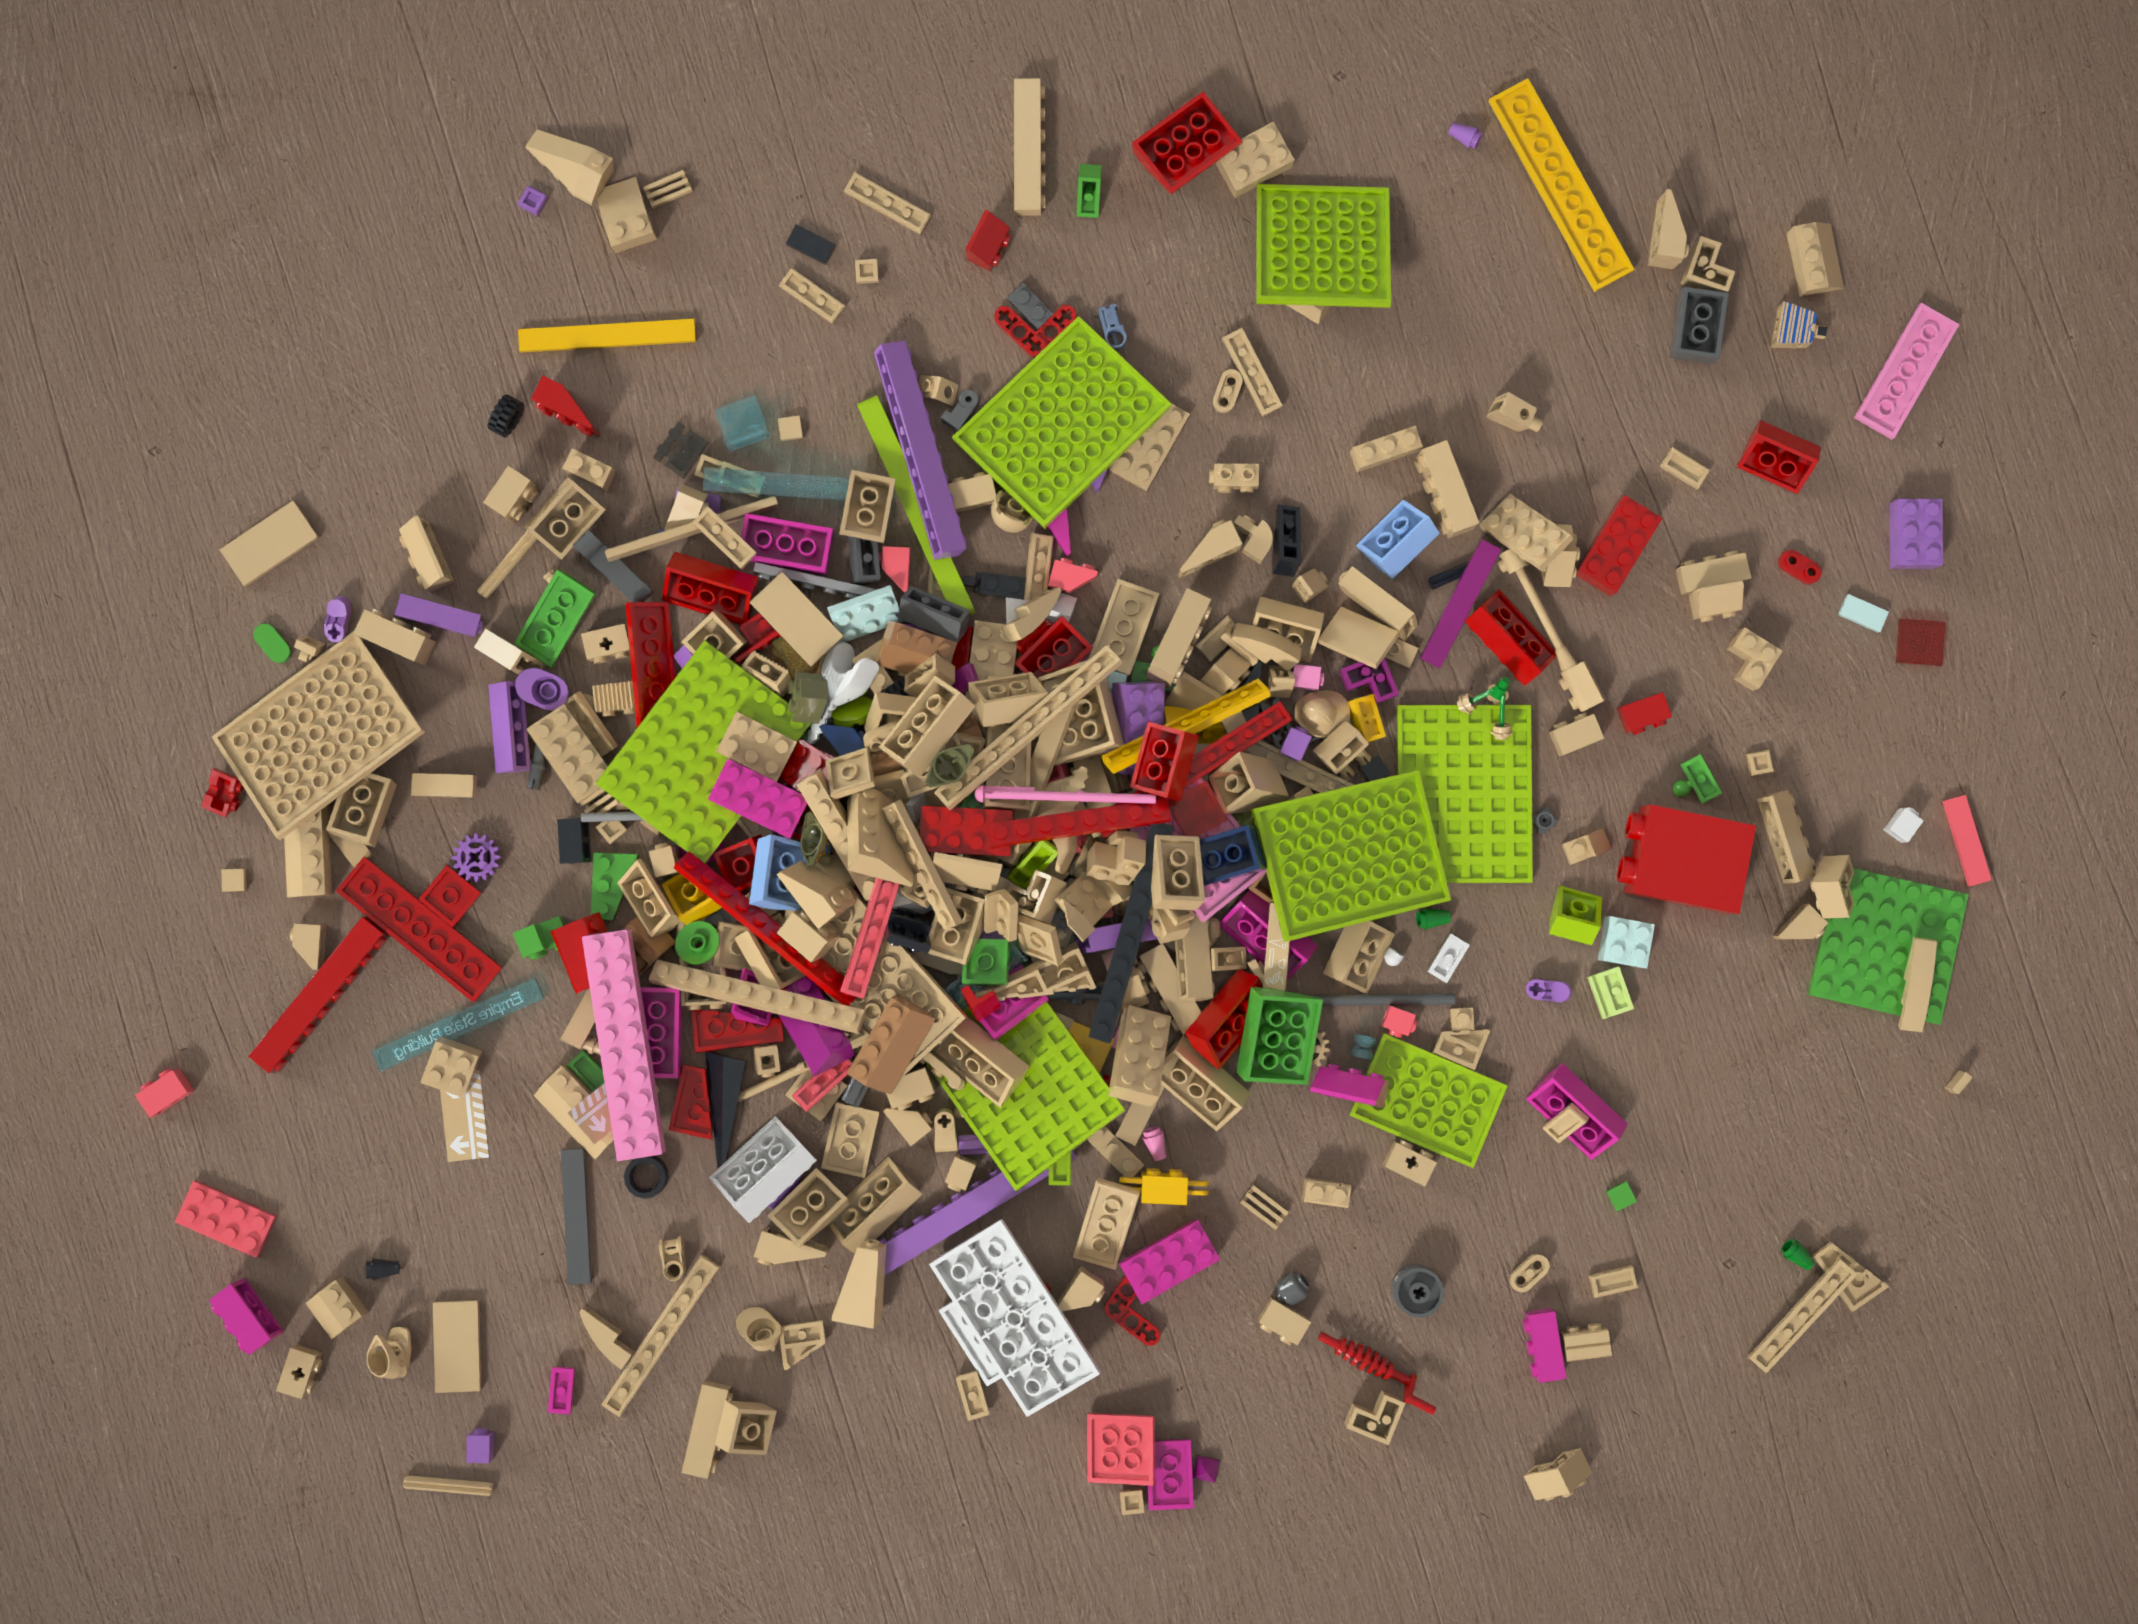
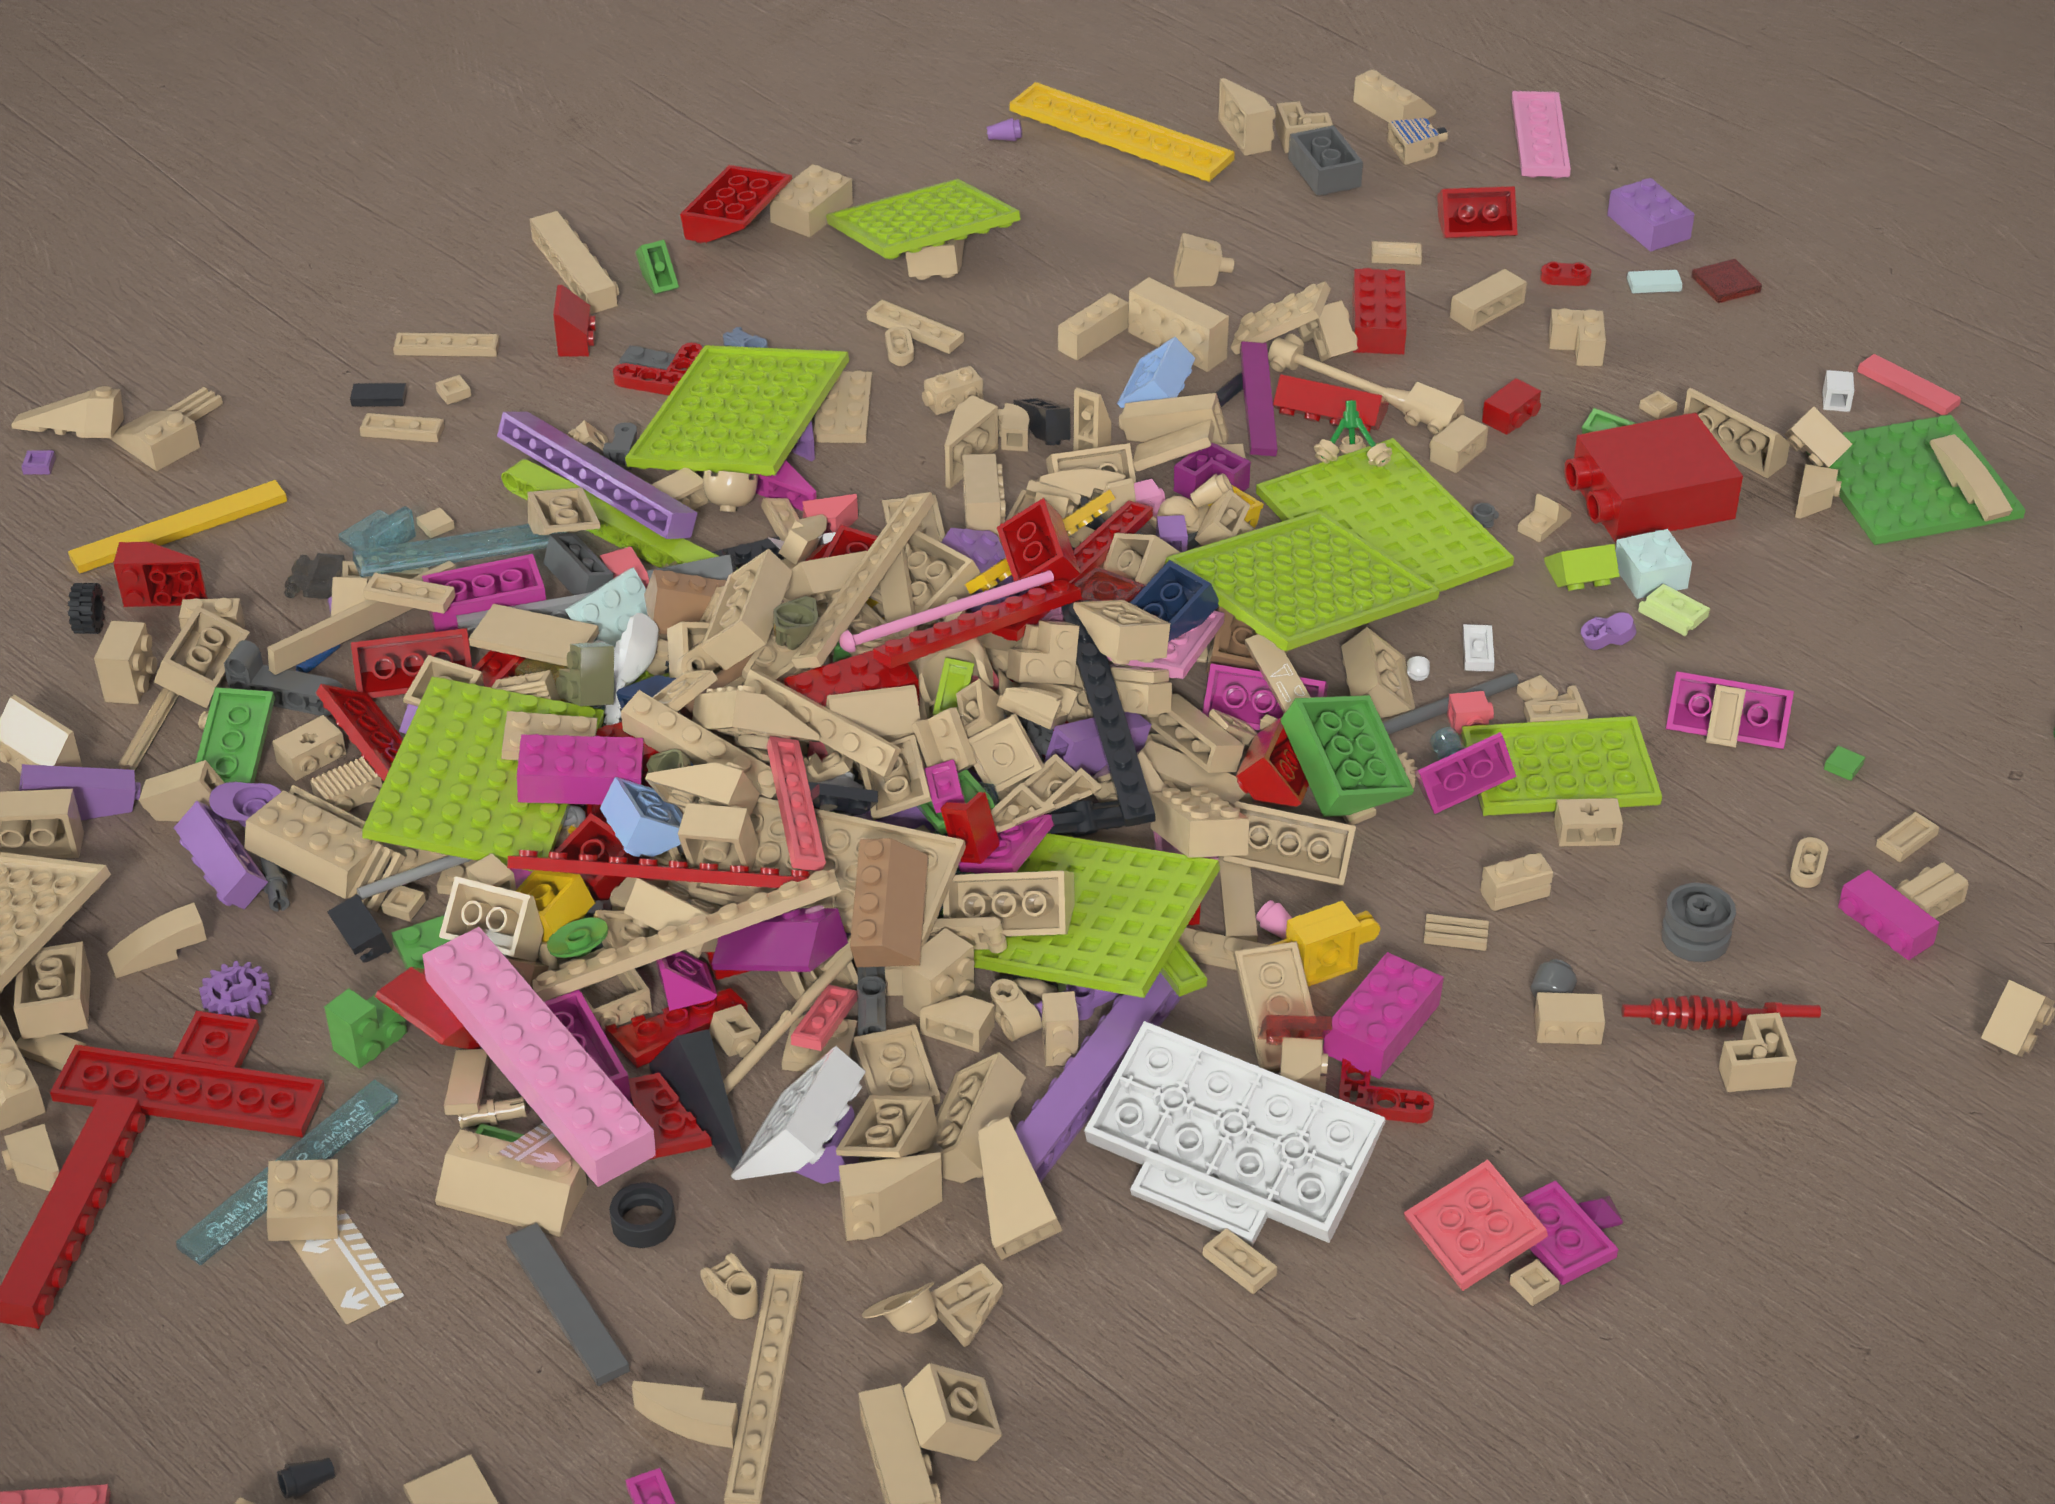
camera: 30 degrees left, 45 degrees down
(981, 955) = (944, 784): none -> dark pink plate
(1097, 1260) = (1276, 1027): none -> clear red plate
(1352, 714) = (1211, 490): none -> tan cone
(1432, 918) = (1432, 624): green cone -> none
(1717, 601) = (1507, 306): tan slope -> none

